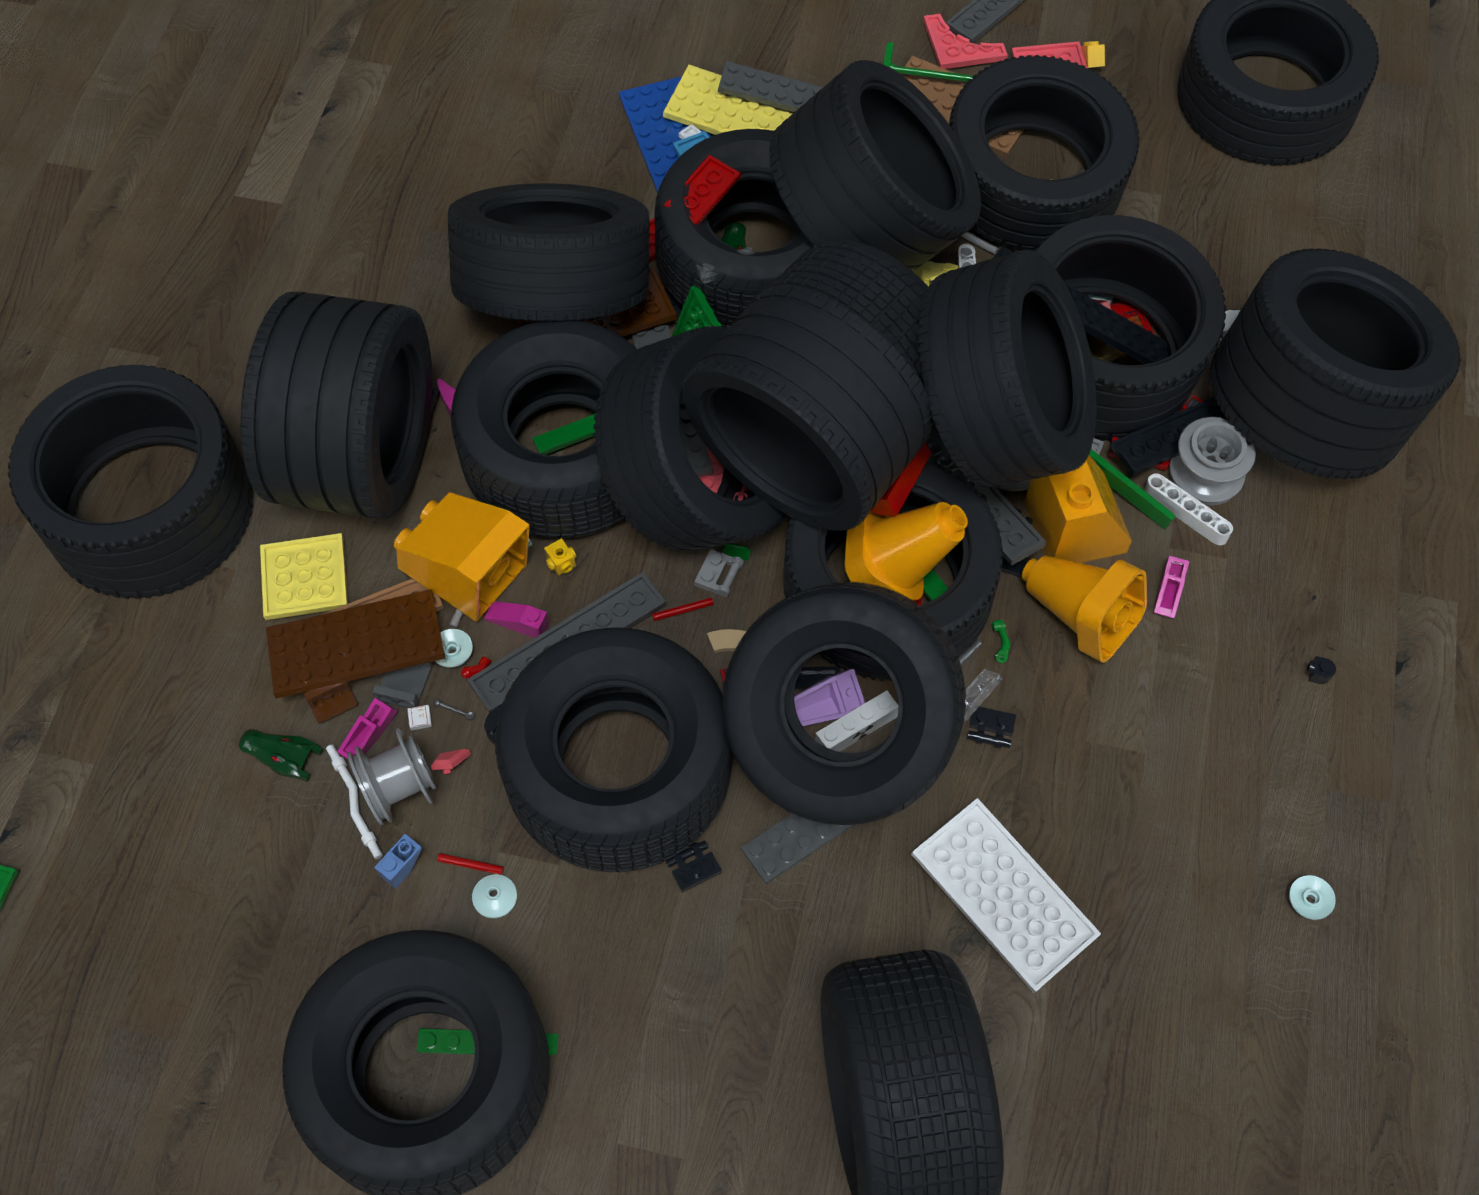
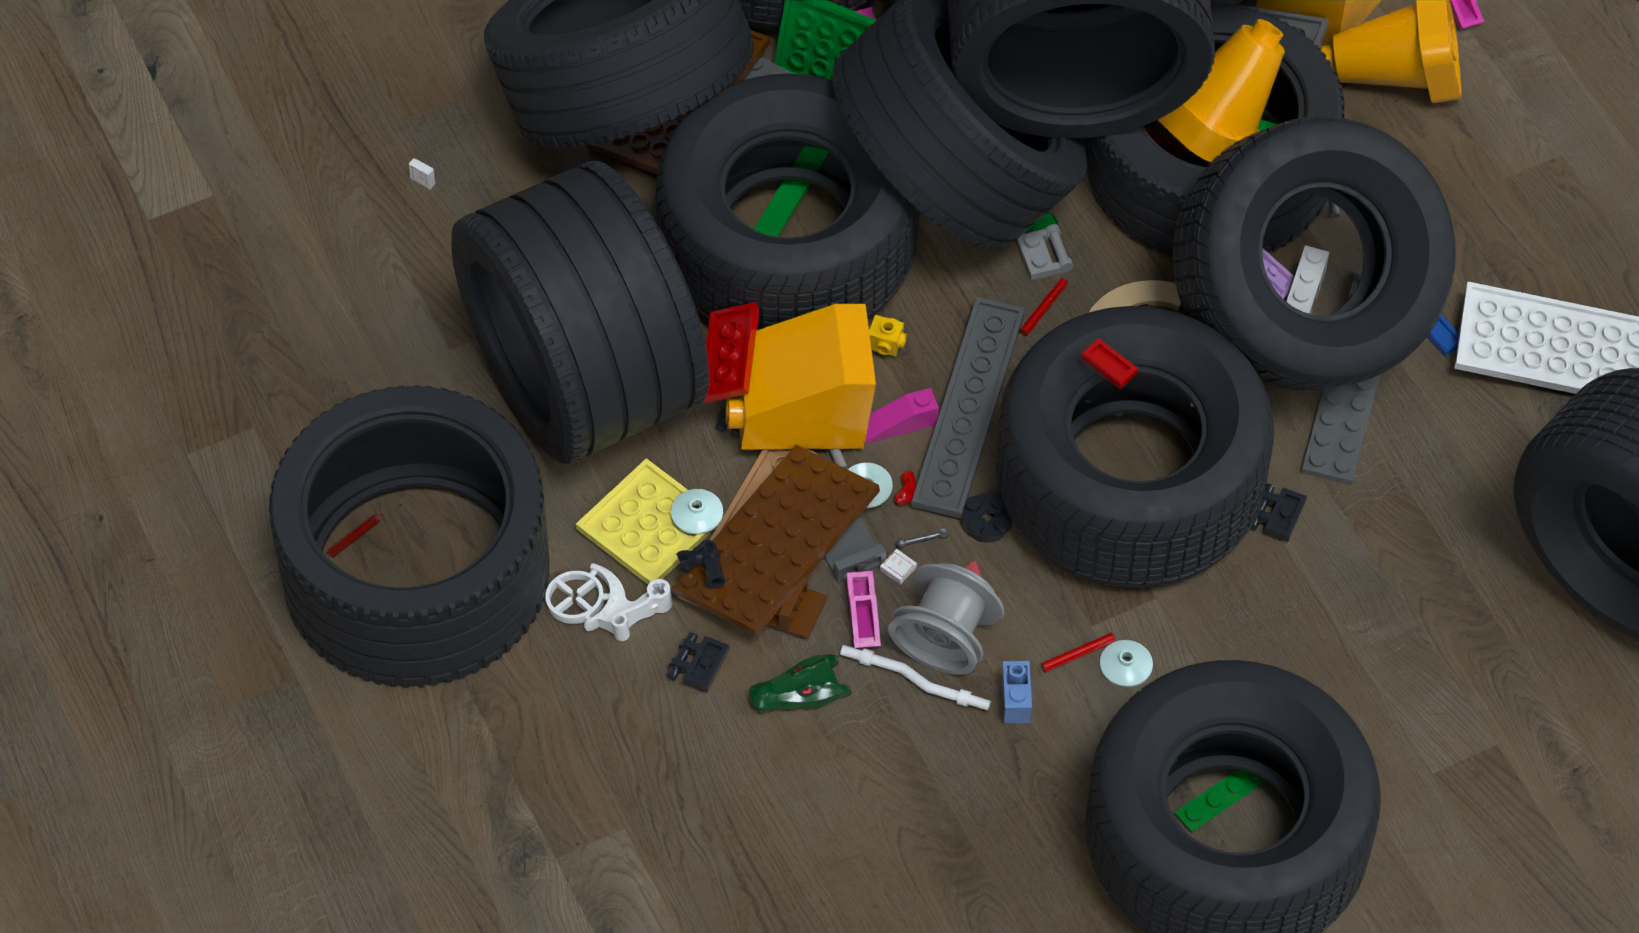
camera: 40 degrees left, 5 degrees down
(141, 460) = (352, 537): none -> red piece
(226, 617) = (619, 612): none -> white piece
(240, 693) = (705, 664): none -> black plate
(296, 622) = (708, 556): none -> black bar
(336, 596) = (697, 520): none -> light aqua dish
(400, 266) = (422, 173): none -> white tile
(430, 498) = (731, 351): none -> red plate
(619, 678) = (1109, 363): none -> red tile
(931, 816) = (1444, 336): none -> blue tile

